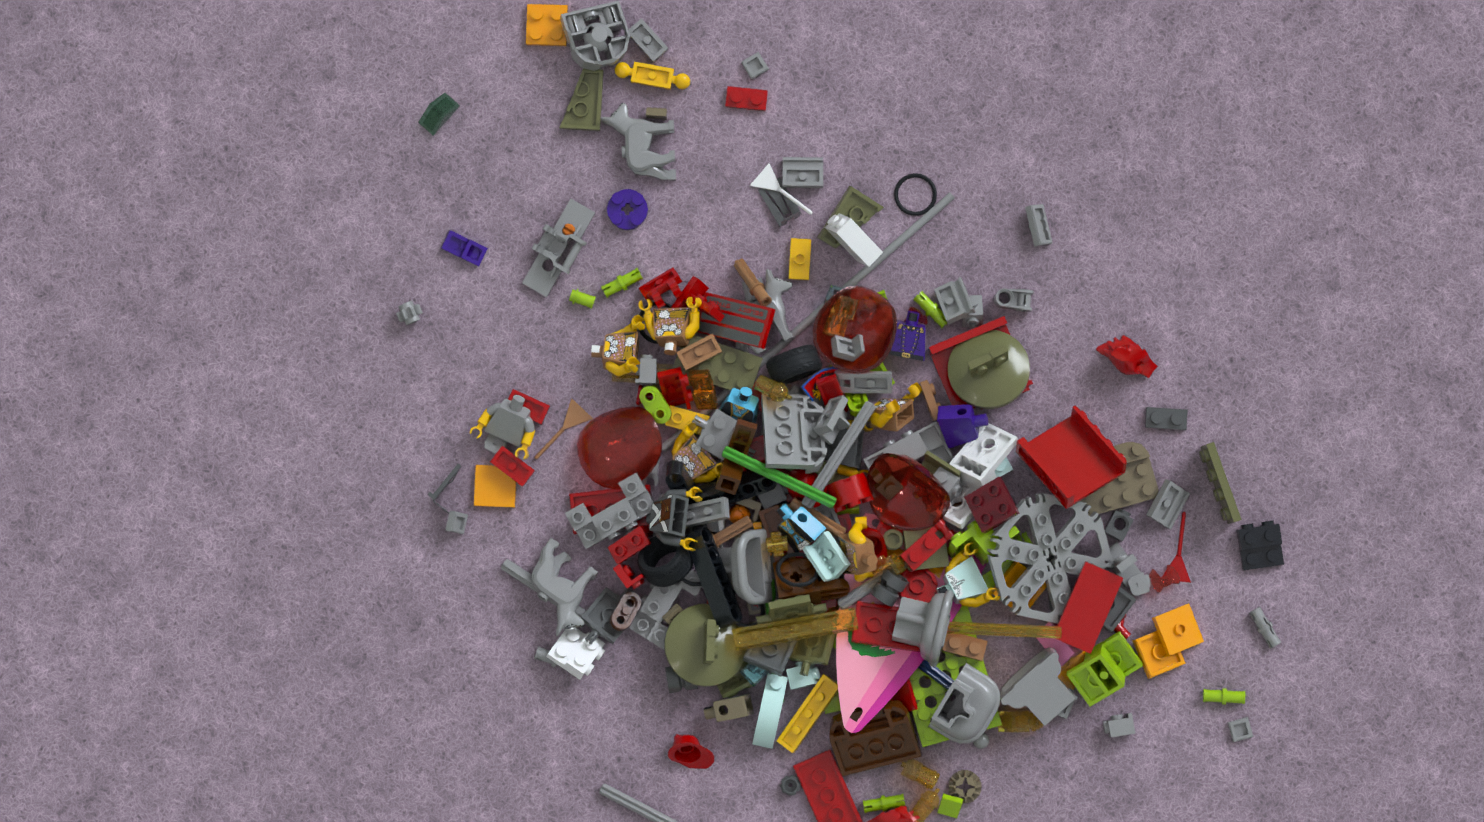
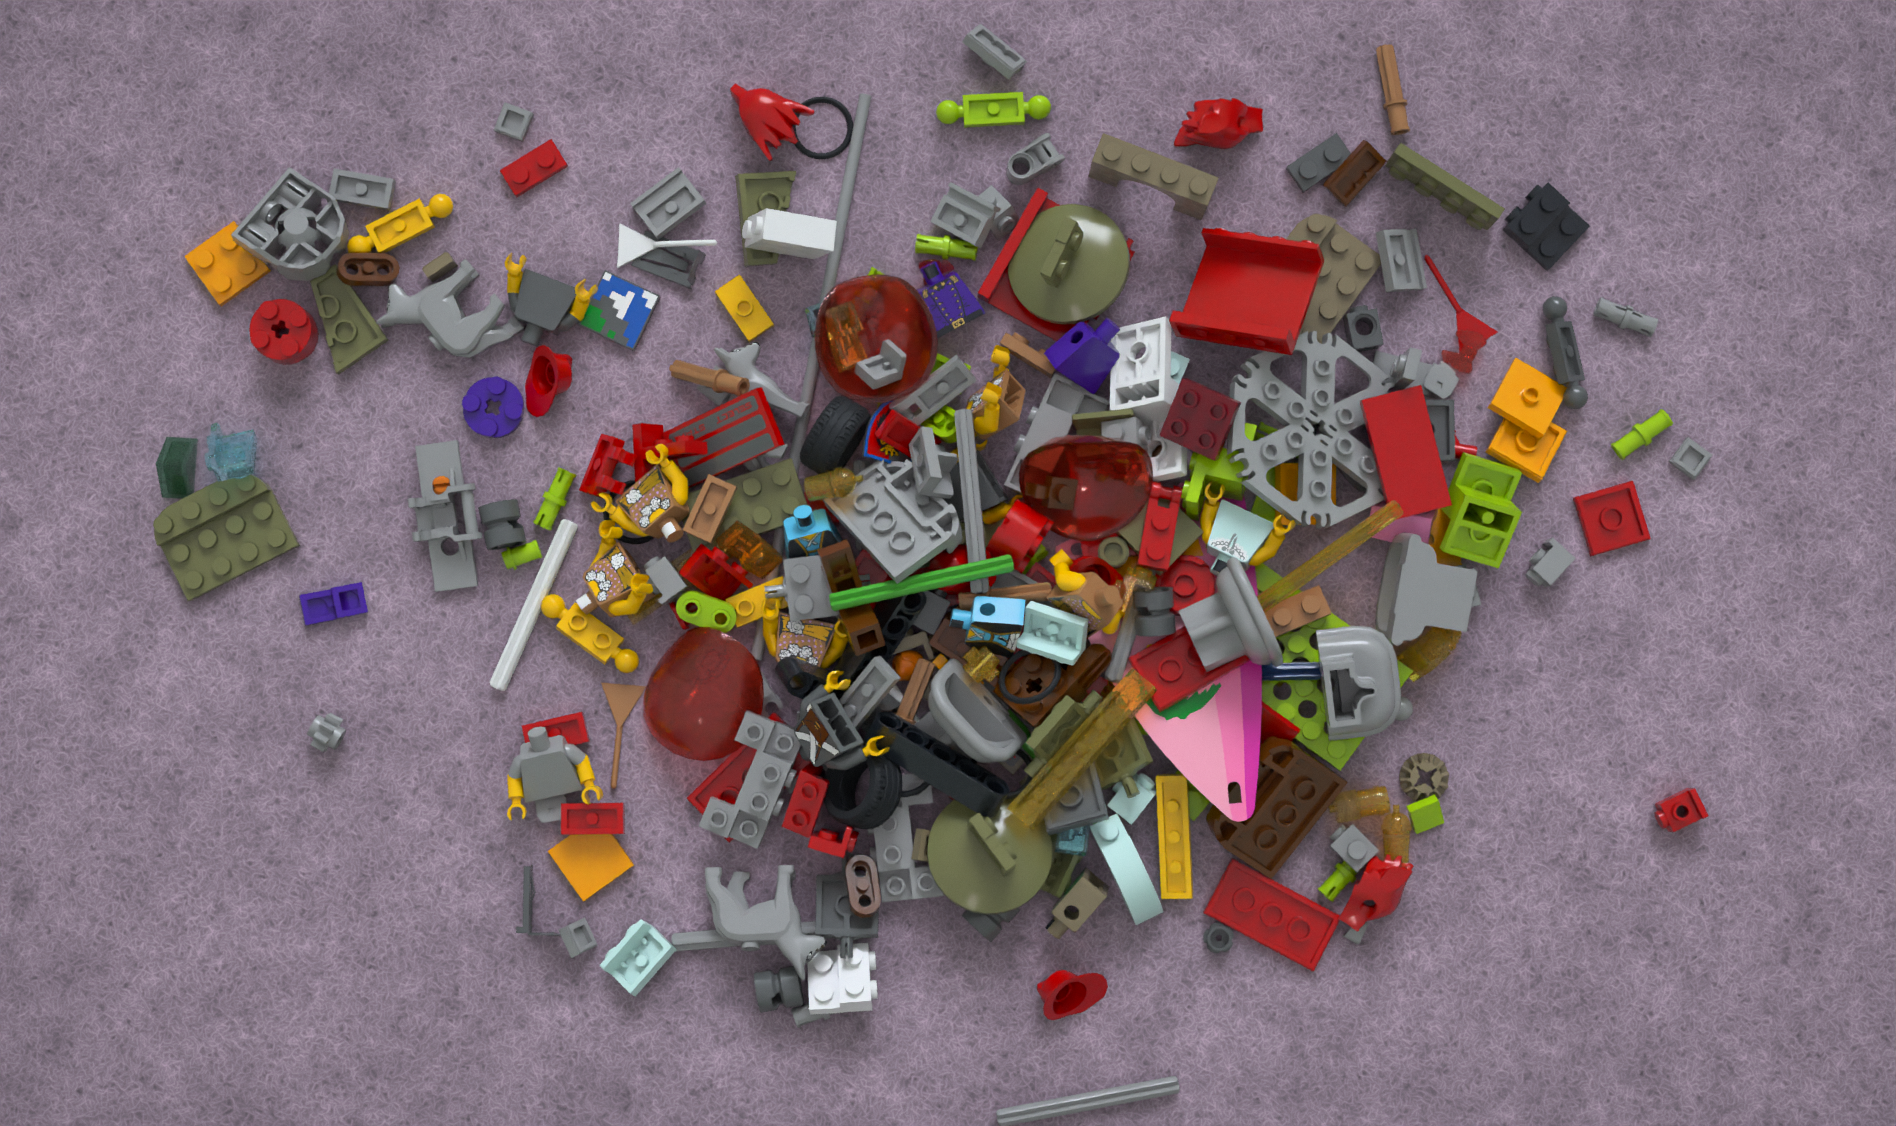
camera: 40 degrees left, 0 degrees up
(435, 166) = (222, 533): none -> olive plate
(472, 129) = (231, 454): none -> clear light blue bracket
(480, 556) = (638, 956): none -> light aqua bracket
(539, 630) = (778, 989): none -> dark grey wheel
(549, 73) = (279, 315): none -> red brick
(567, 330) = (532, 605): none -> white axle
(584, 275) = (502, 524): none -> dark grey wheel
(585, 368) = (589, 633): none -> yellow plate
(617, 84) = (366, 268): none -> reddish brown plate
(666, 216) = (547, 377): none -> red piece
(696, 174) = (544, 302): none -> dark grey torso
(733, 209) = (620, 310): none -> tile
(891, 168) = (768, 116): none -> red piece
(897, 792) = (1352, 846): none -> light grey bracket
(1014, 255) = (993, 109): none -> lime plate
(1059, 338) = (1124, 161): none -> dark tan arch
(1172, 728) = (1611, 518): none -> red tile
(1180, 438) = (1354, 173): none -> reddish brown plate
(1217, 621) = (1564, 352): none -> dark grey plate
(1235, 410) = (1392, 90): none -> medium nougat axle

